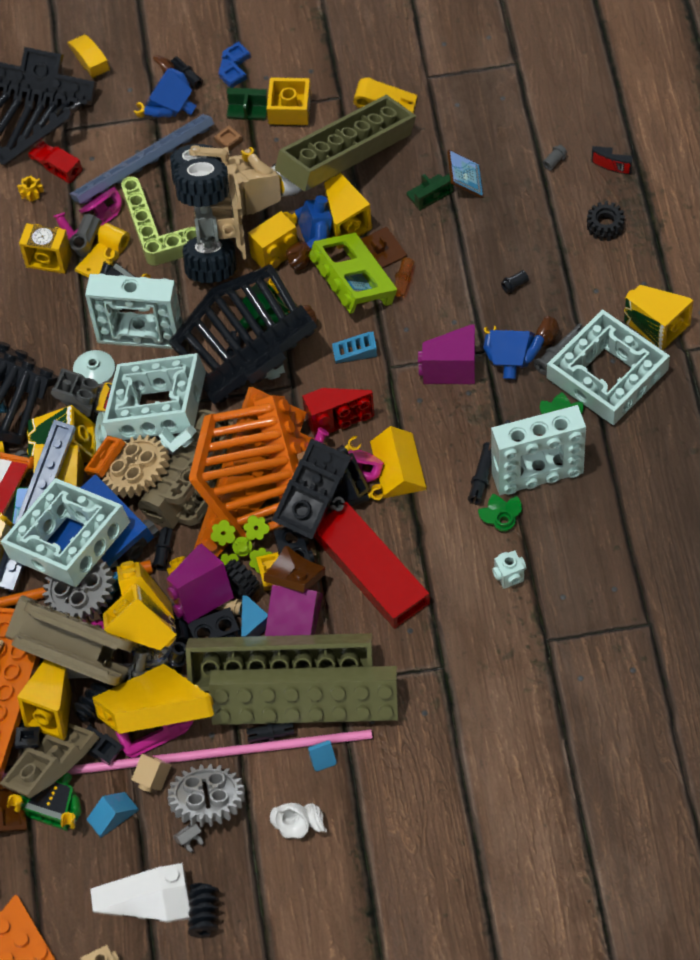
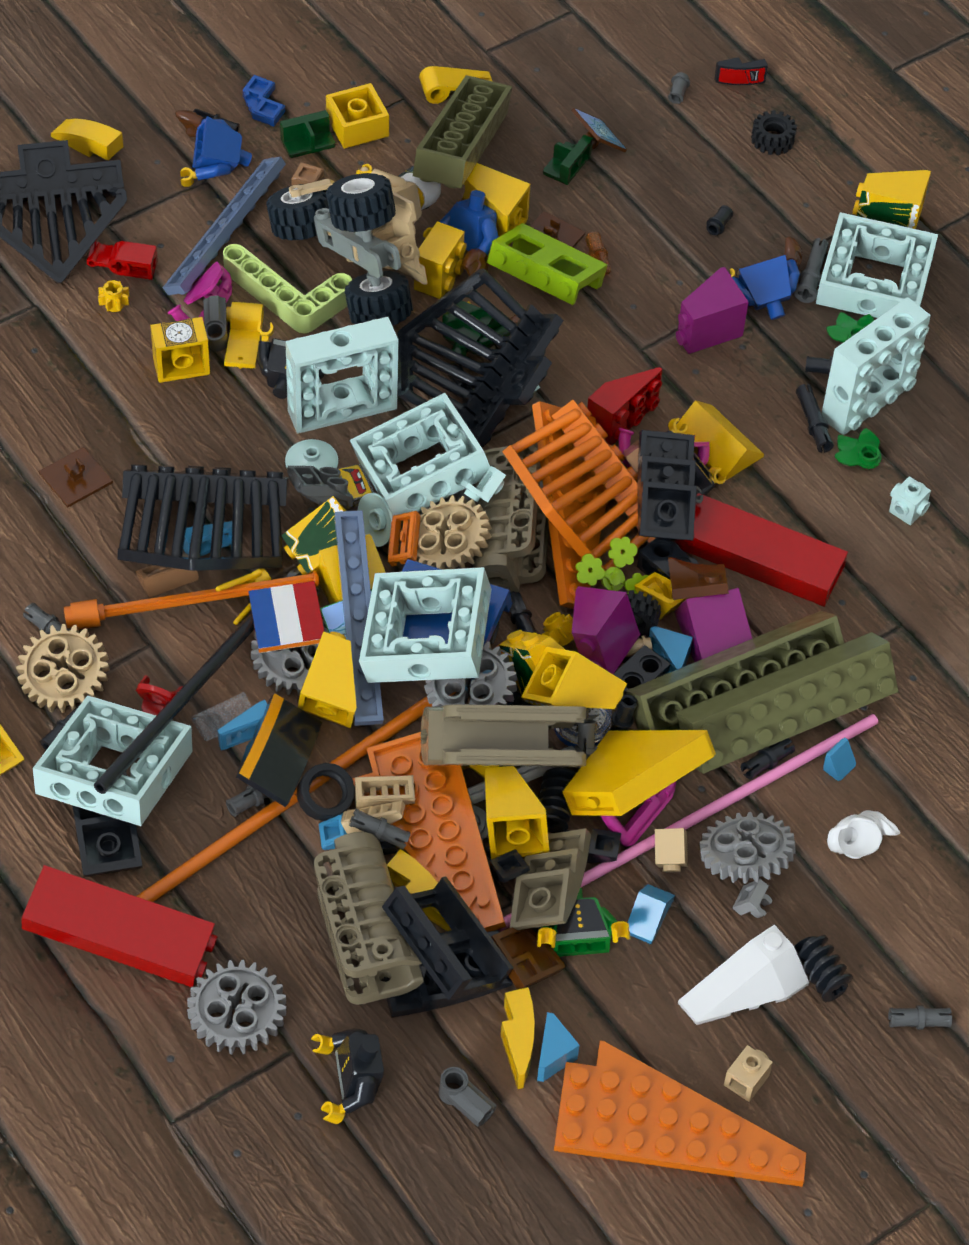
camera: 35 degrees left, 5 degrees down
(359, 340) = (605, 329): dark azure slope -> none

